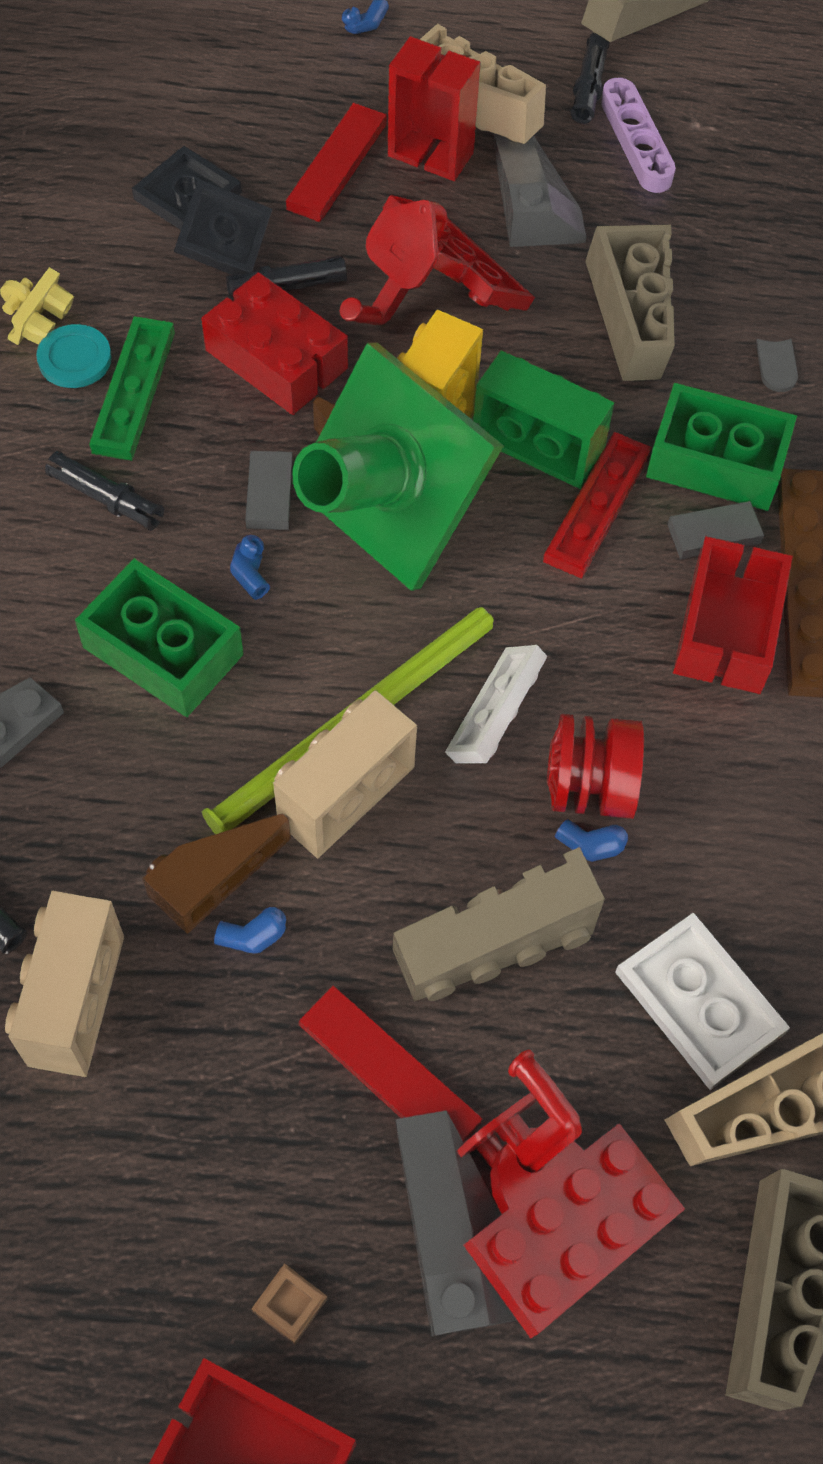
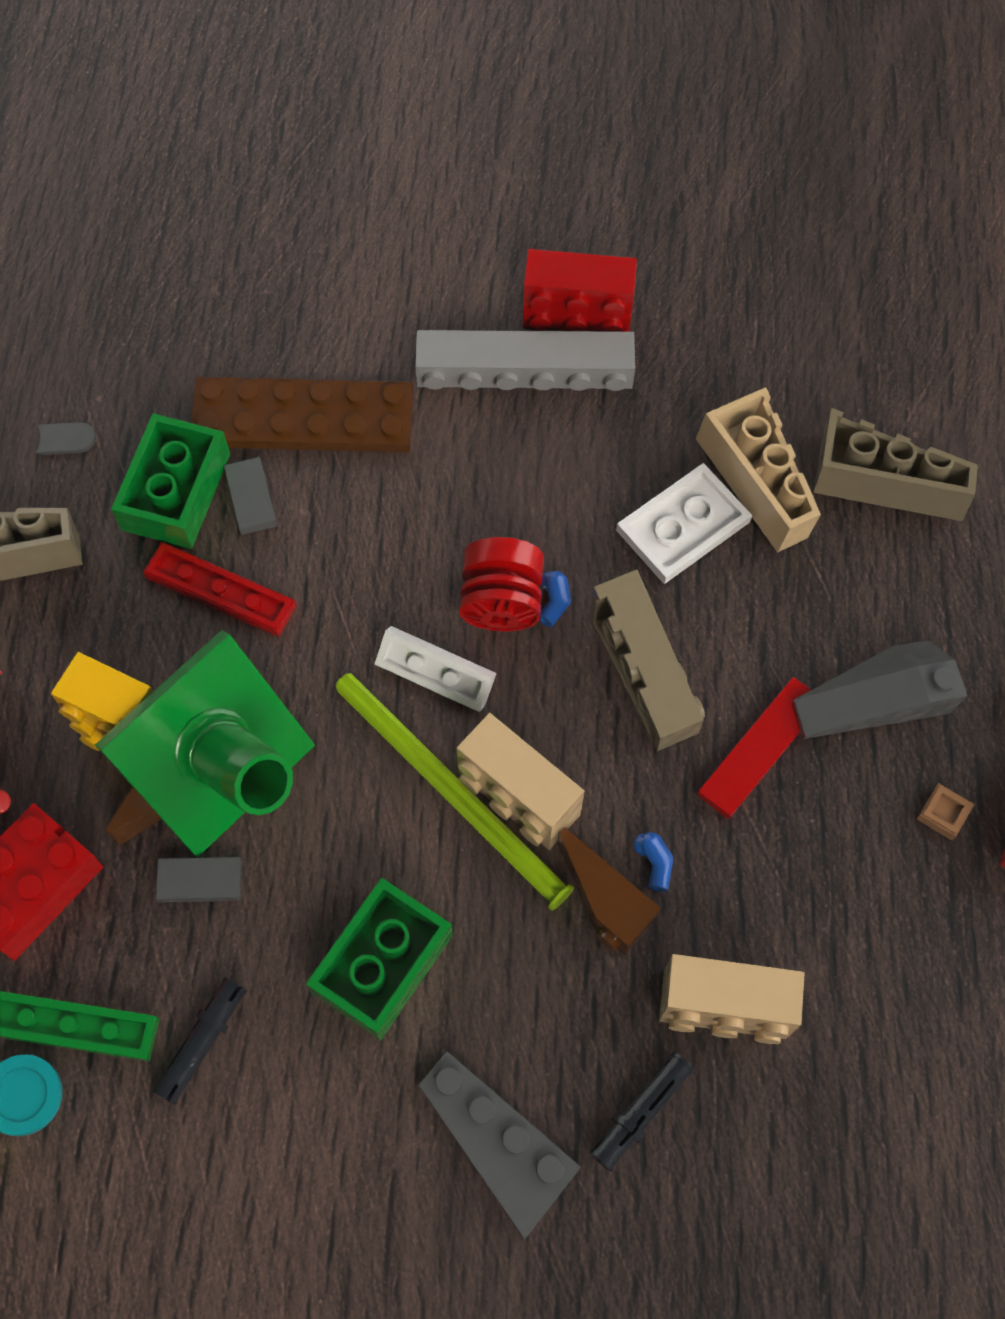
camera: 90 degrees left, 5 degrees up
(246, 565) = (289, 895): blue arm -> none
(543, 418) = (142, 619): green brick -> none
(562, 1207) = (857, 612): red plate -> none
(731, 619) = (348, 480): red piece -> none

